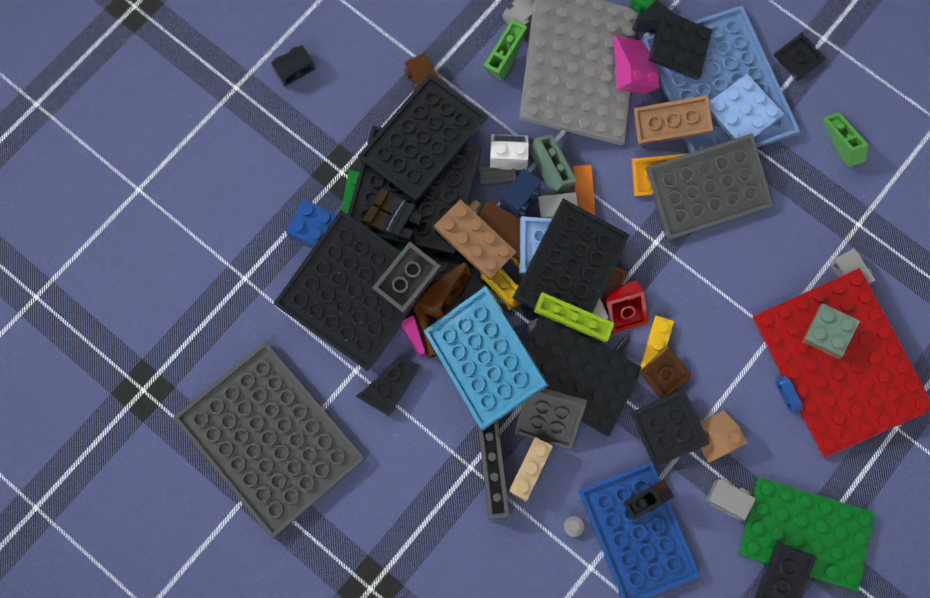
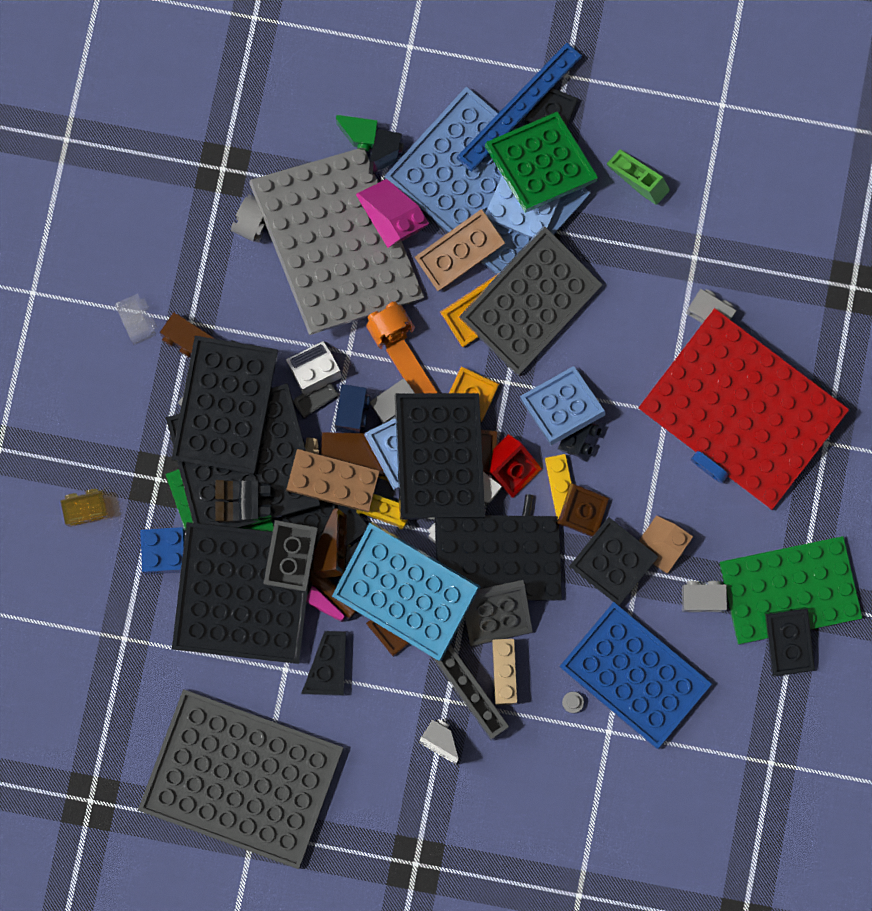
camera: 30 degrees left, 5 degrees up
(272, 162) = (84, 507): none -> clear yellow brick
(293, 65) = (45, 395): black brick -> none
(393, 44) = (135, 319): none -> clear brick
(446, 495) = (440, 740): none -> white slope
(451, 393) = (388, 639): none -> reddish brown tile
(506, 50) = (255, 265): bright green slope -> none
(552, 164) = (365, 360): sand green brick -> none
(573, 317) = (469, 506): lime plate -> none
(586, 147) = (389, 325): none -> orange brick
(627, 224) = (471, 382): none -> light orange tile
(648, 499) = (628, 639): black slope -> none
(680, 45) = (426, 167): black plate -> none
(692, 281) = (562, 405): none -> medium blue plate
(694, 313) = (582, 441): none -> black bracket
(774, 85) = (541, 162): none -> green plate
(775, 39) = (520, 105): none -> blue tile
(830, 331) = (716, 387): sand green brick -> none

